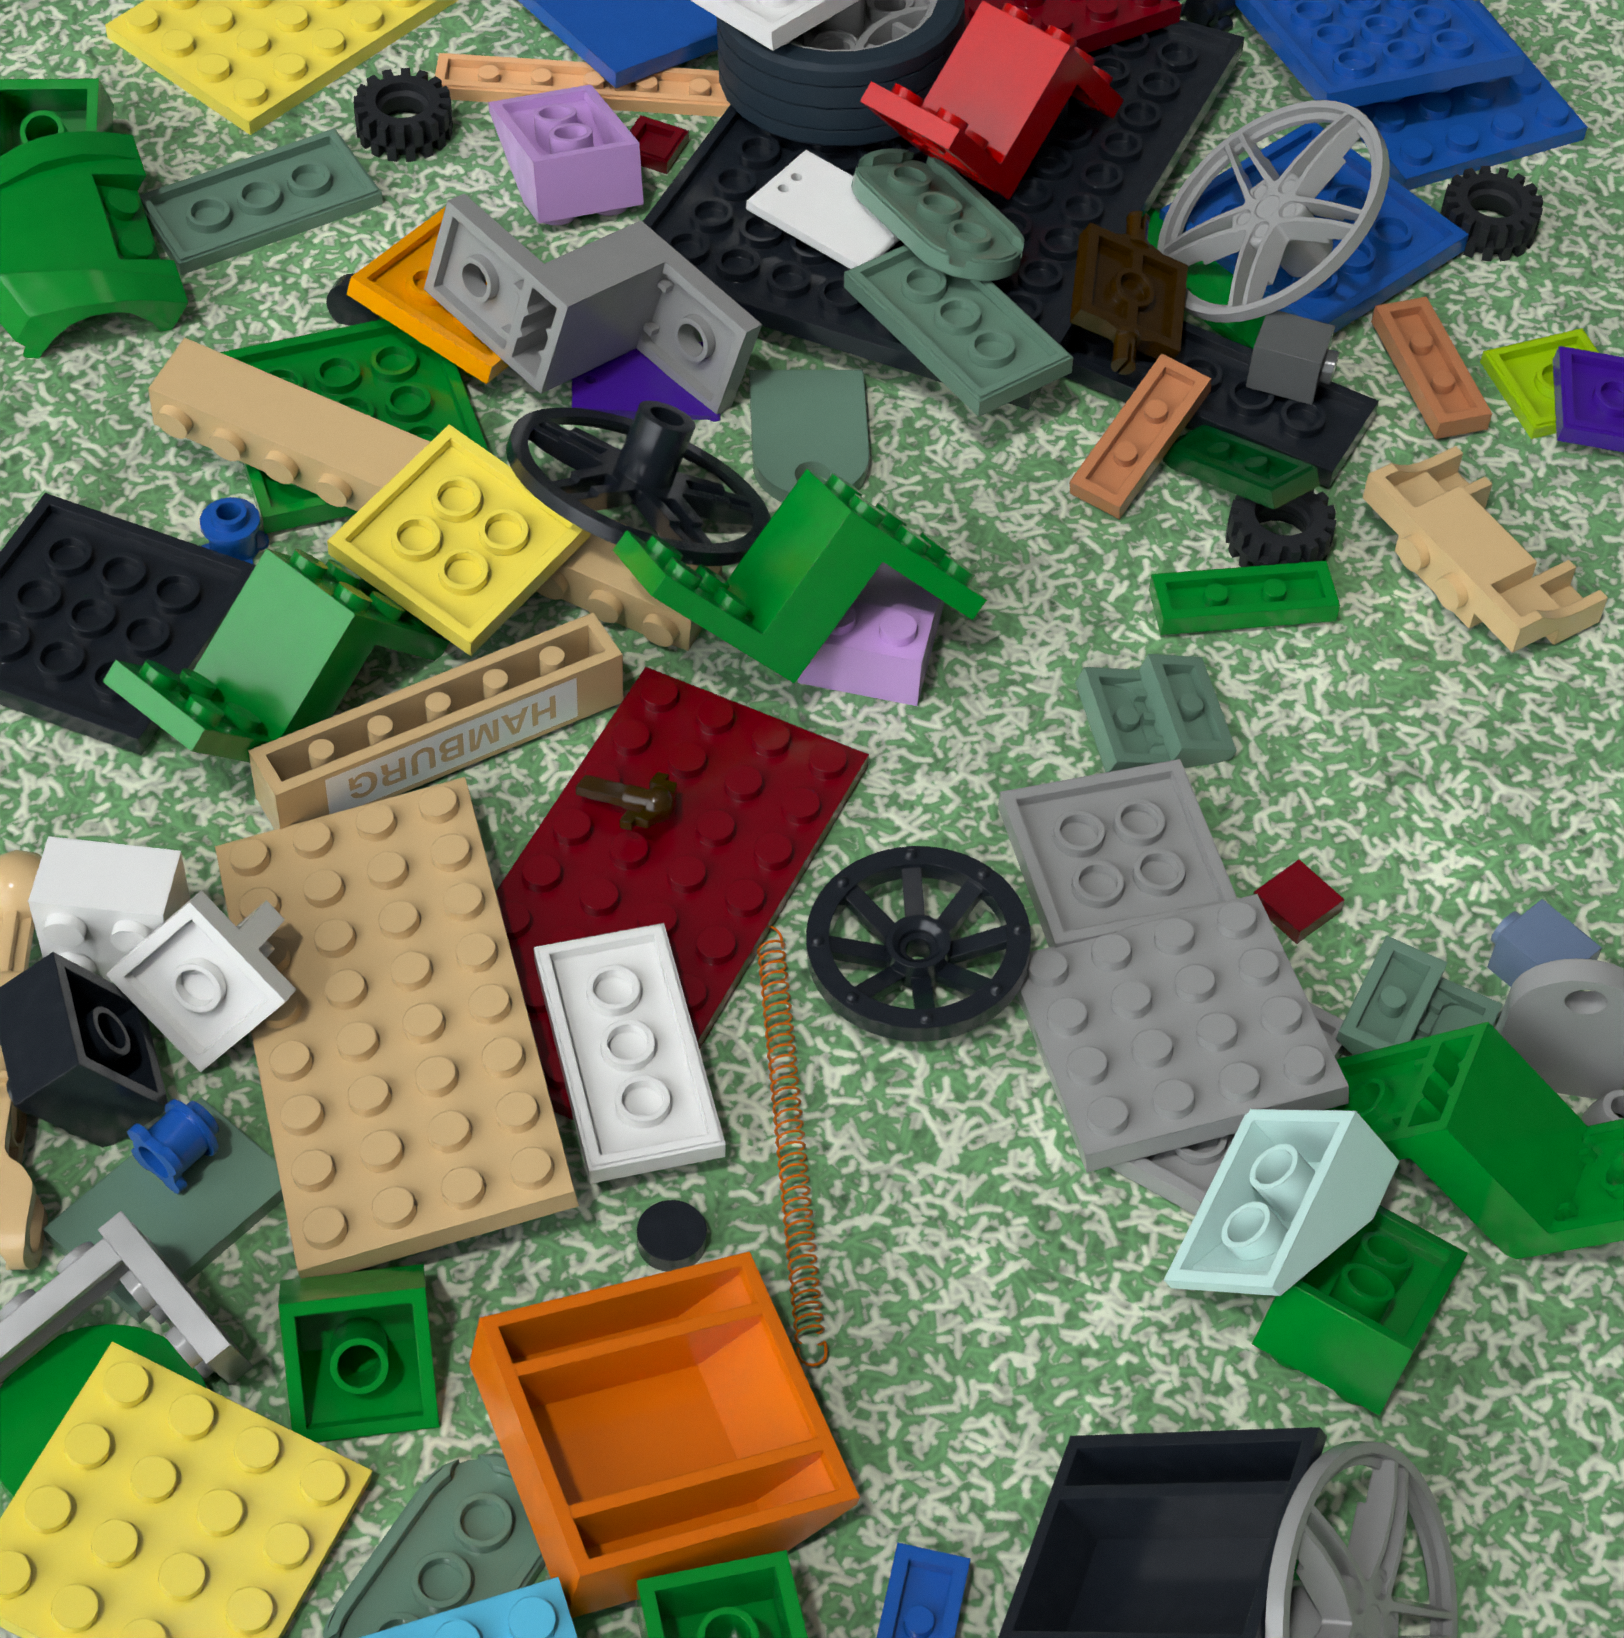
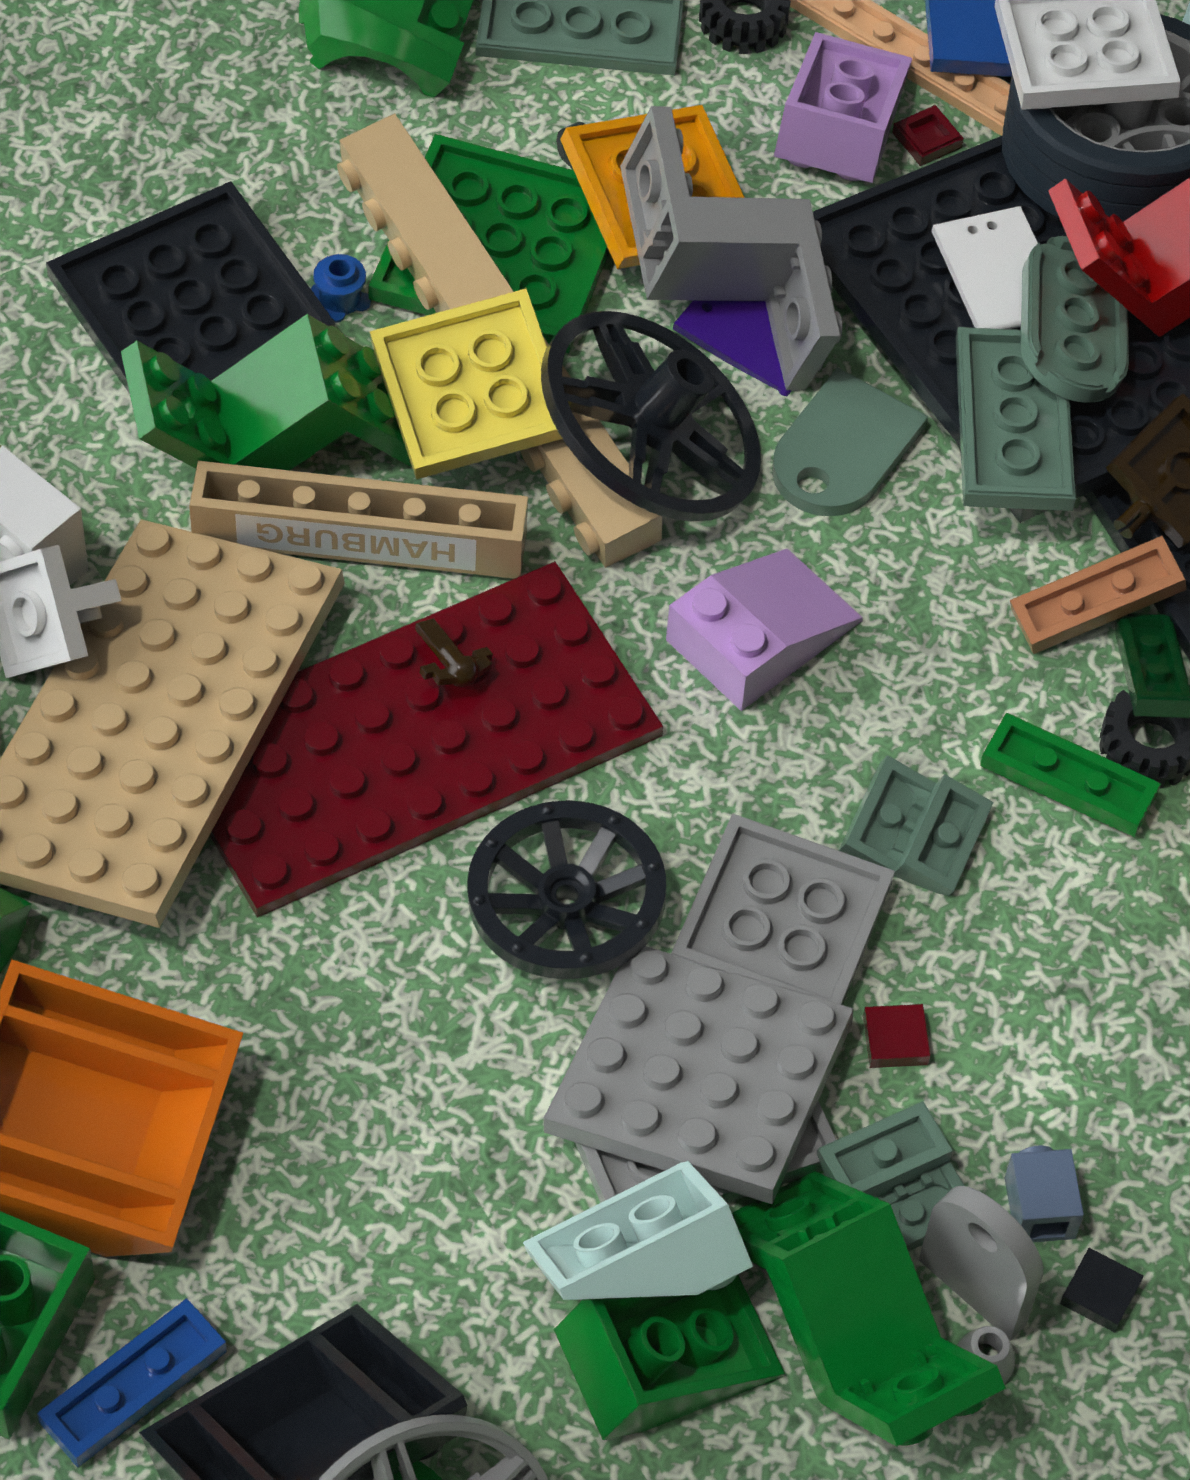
camera: 35 degrees right, 5 degrees up
(628, 1053) = (290, 841): white tile -> none
(671, 1235) = (223, 992): black tile -> none
(790, 1142) = (355, 977): orange piece -> none
(799, 573) = (693, 554): green bracket -> none

